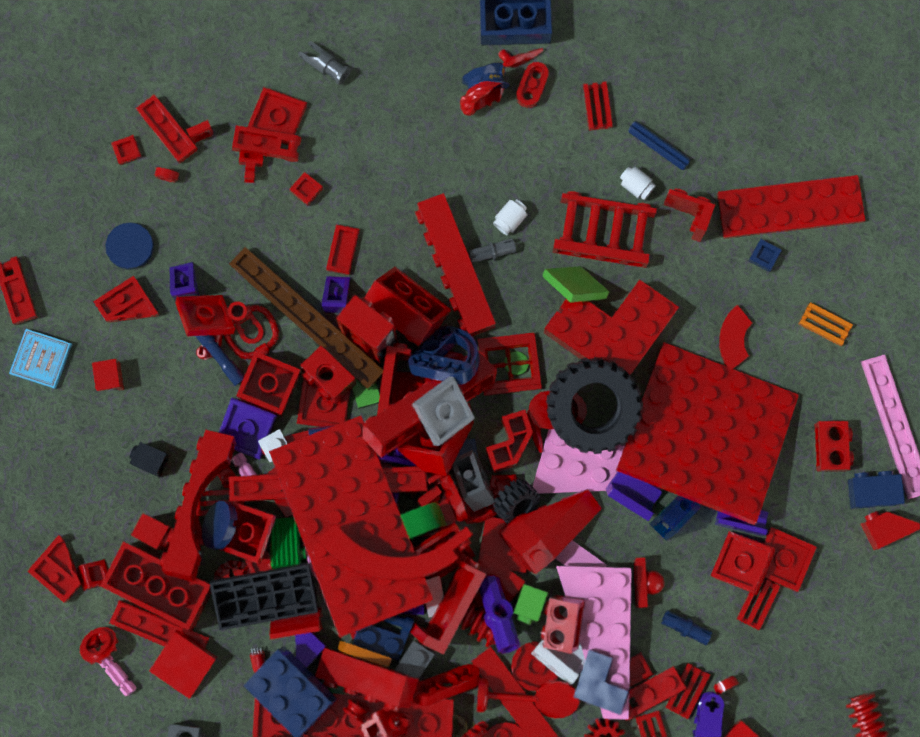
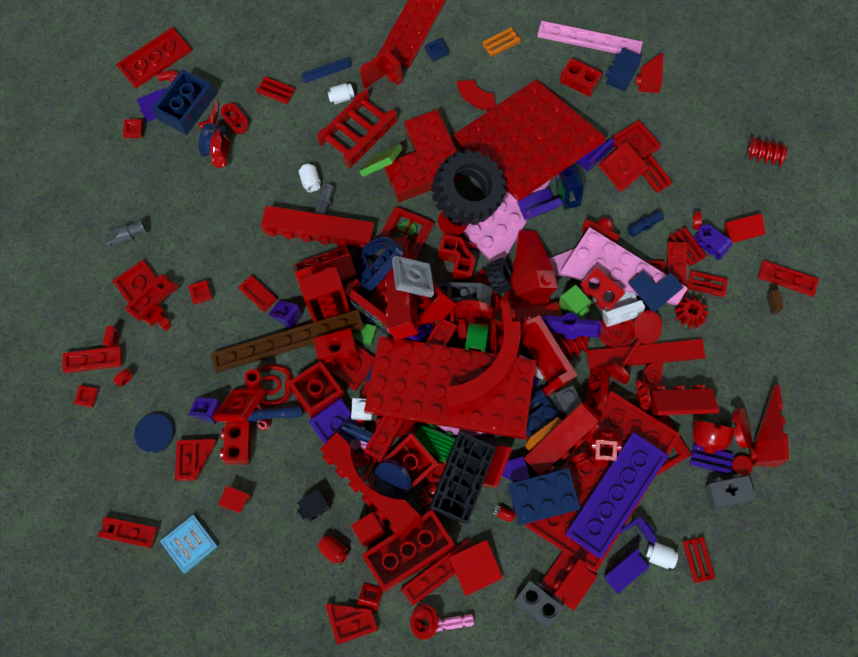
camera: 55 degrees left, 10 degrees down
(117, 507) = (333, 549): none -> red brick
(170, 344) = (242, 442): none -> red brick
(249, 455) = (357, 432): none -> dark blue pin

